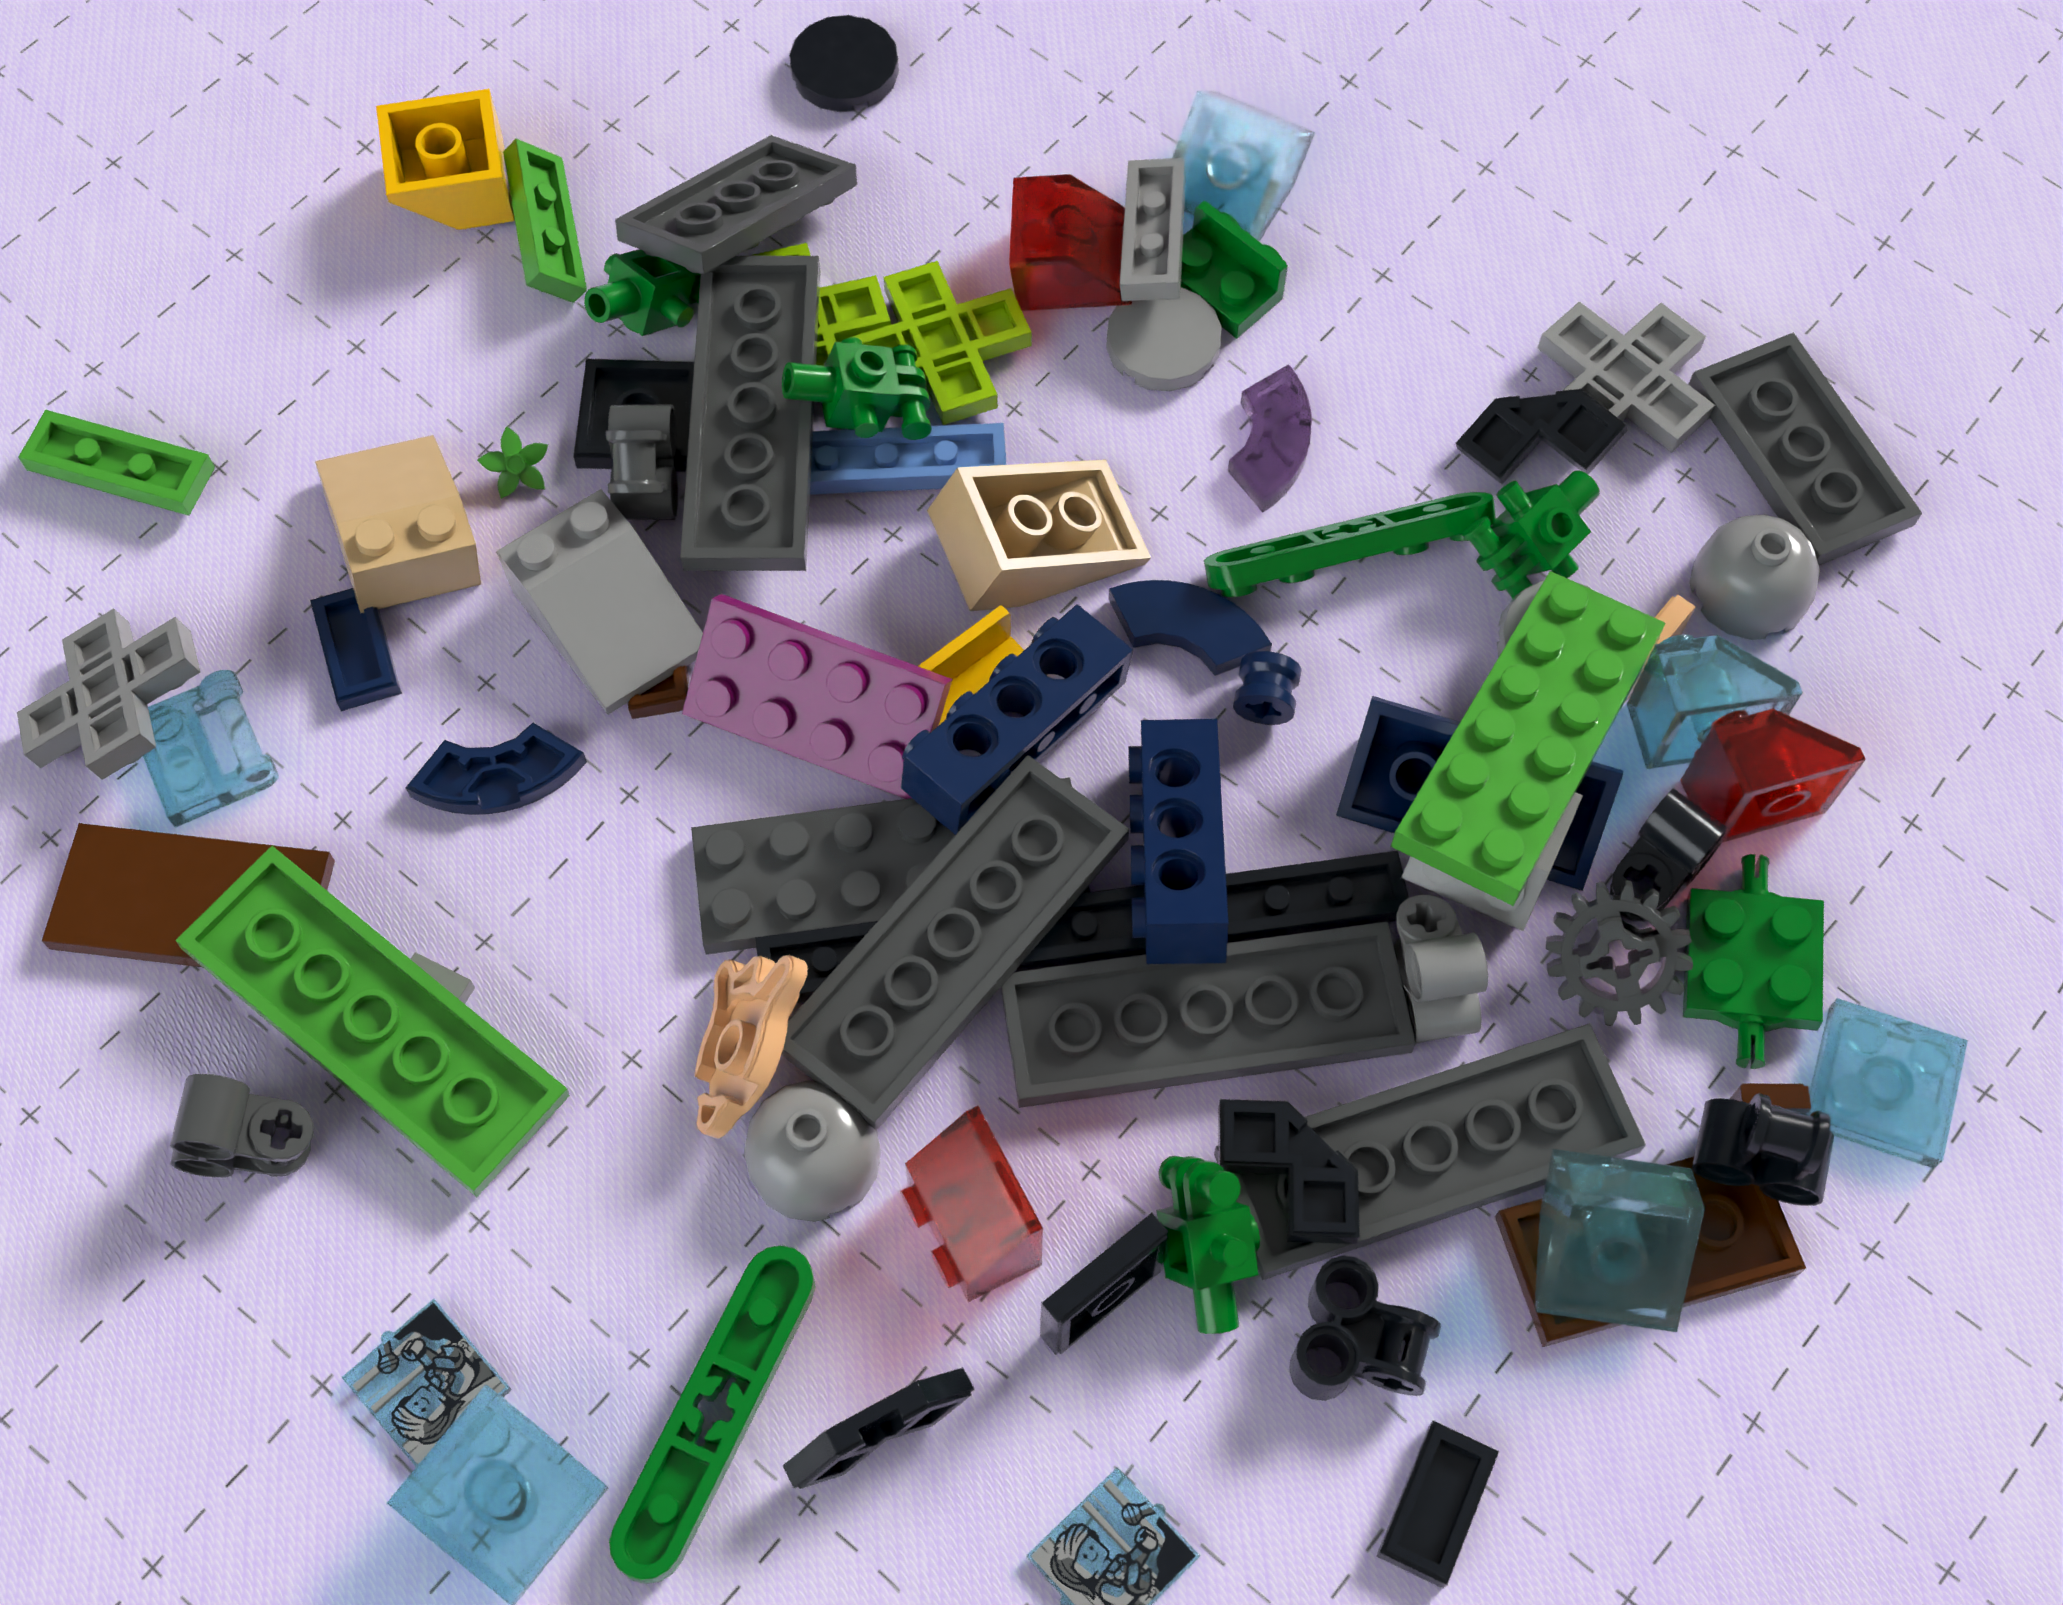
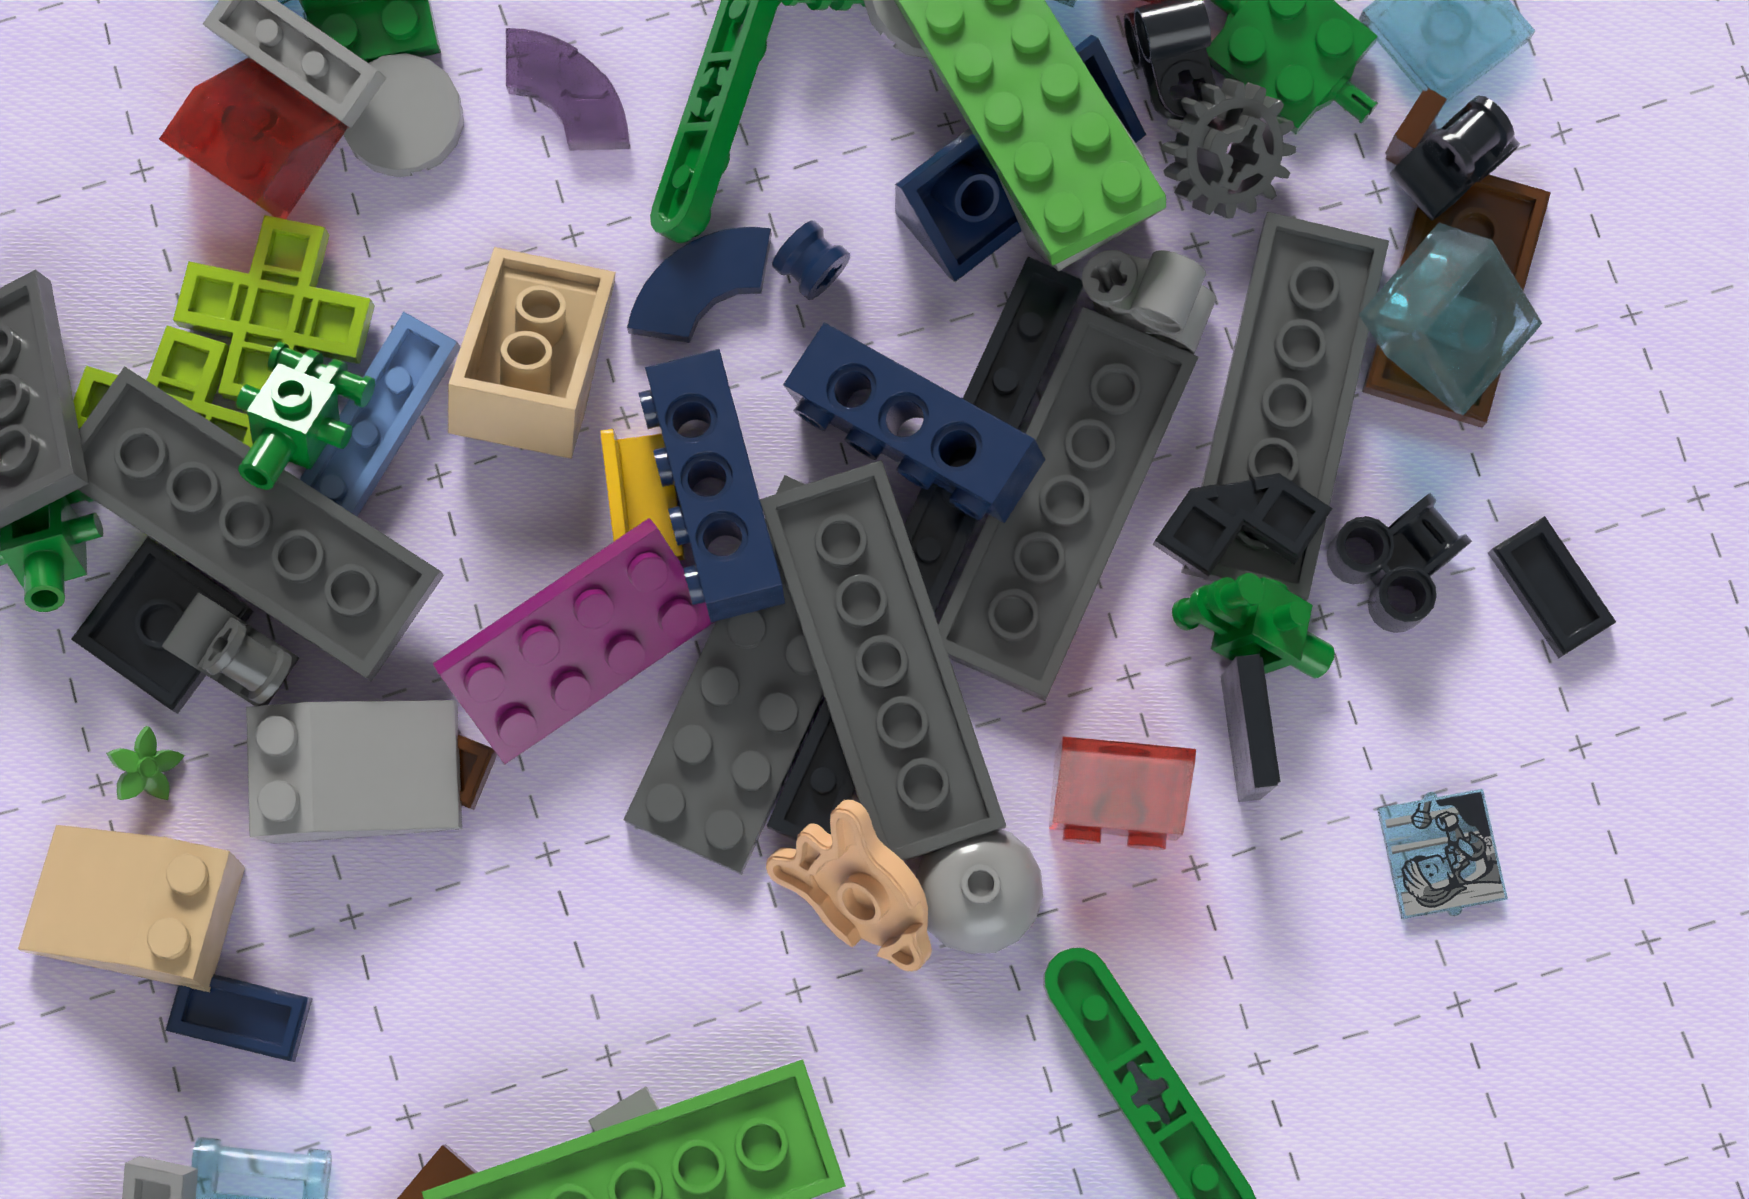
camera: 55 degrees left, 15 degrees up
(496, 776) = (458, 958): dark blue tile -> none
(856, 1437) = (1248, 998): black tile -> none

